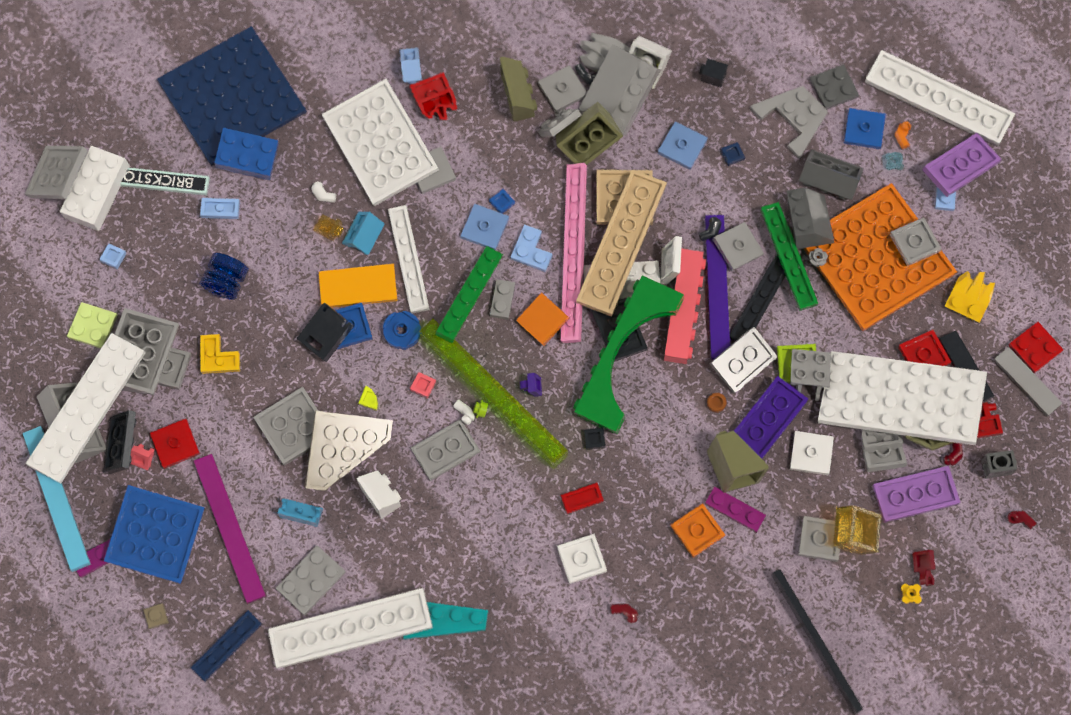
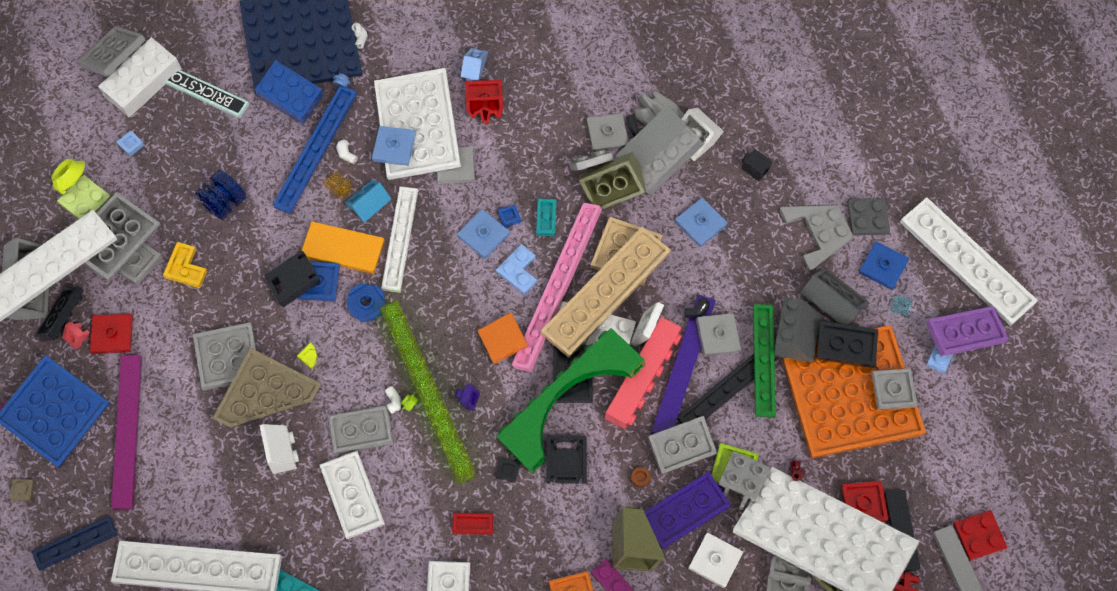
camera: 15 degrees right, 5 degrees down
(67, 307) = (67, 174): none -> neon yellow piece
(220, 208) = (245, 133): light blue plate -> none
(289, 72) = (360, 34): none -> white arm
(290, 125) = (341, 79): none -> medium blue plate
(293, 200) = (315, 149): none -> blue plate
(300, 512) = (198, 439): dark azure hinge -> none
(310, 580) = (181, 508): light grey plate -> none
(368, 171) = (394, 145): none -> medium blue plate
(423, 385) = (364, 360): coral plate -> none
(461, 511) = (352, 494): none -> white tile
(469, 294) = (440, 290): green plate -> none
(502, 299) = (473, 306): light grey plate -> none
(517, 89) = (564, 117): olive slope -> none
(537, 191) = (546, 217): none -> teal plate
(644, 414) = (567, 464): none -> black container
(732, 154) = (746, 246): dark blue tile -> none
(813, 257) = (792, 375): light grey plate -> none
(855, 347) = (797, 471): none -> dark red arm
(858, 215) = (847, 344): none -> black plate
(901, 133) = (917, 283): orange arm -> none
(971, 296) = (931, 462): yellow plate -> none

